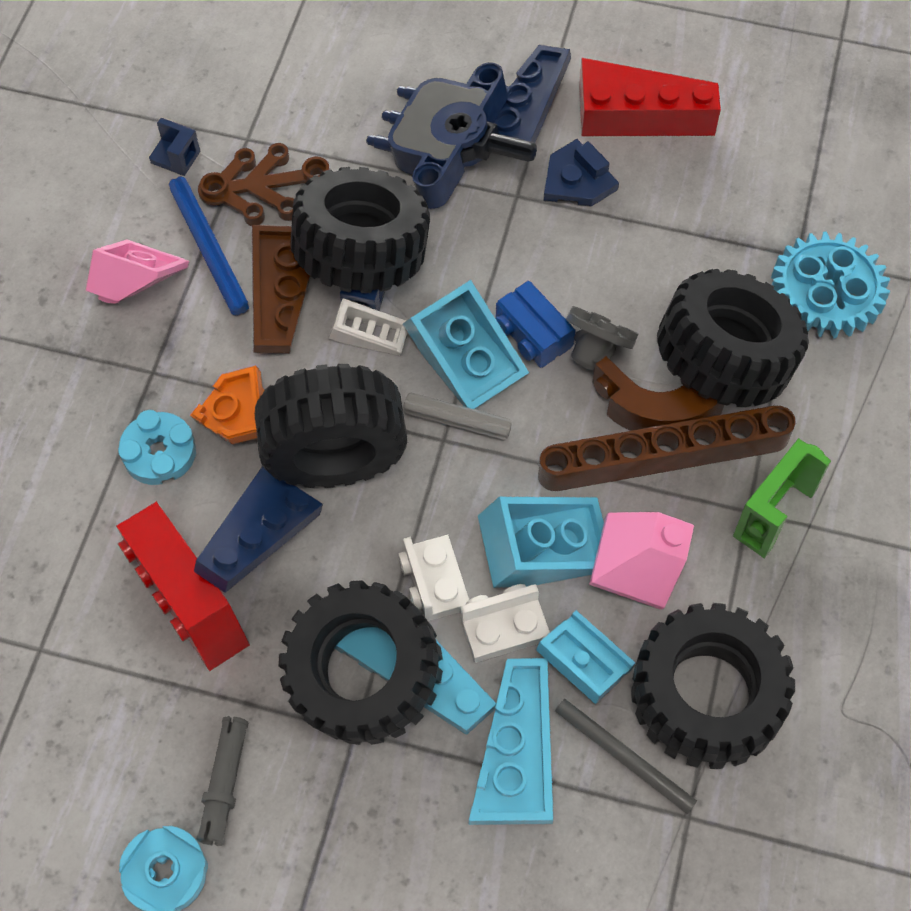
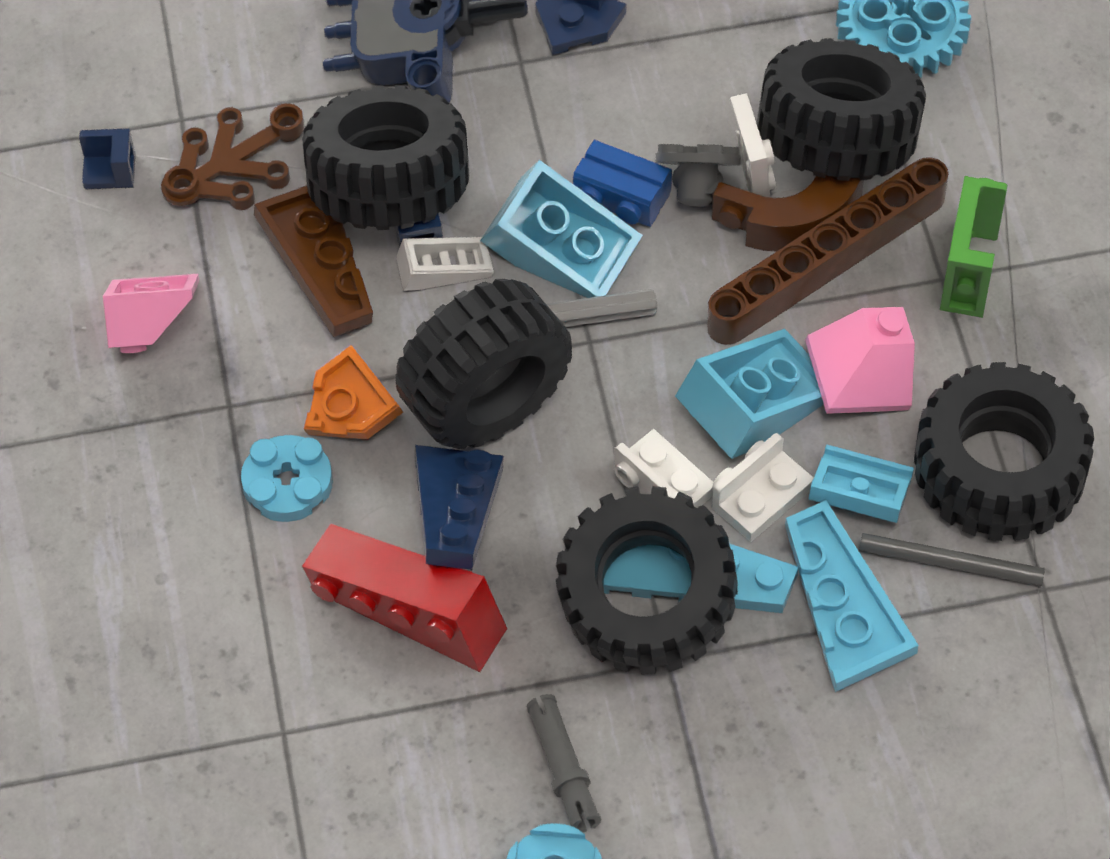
camera: 25 degrees left, 5 degrees down
(209, 246) = (212, 248): blue axle -> none
(643, 344) = (754, 152): none -> white wing

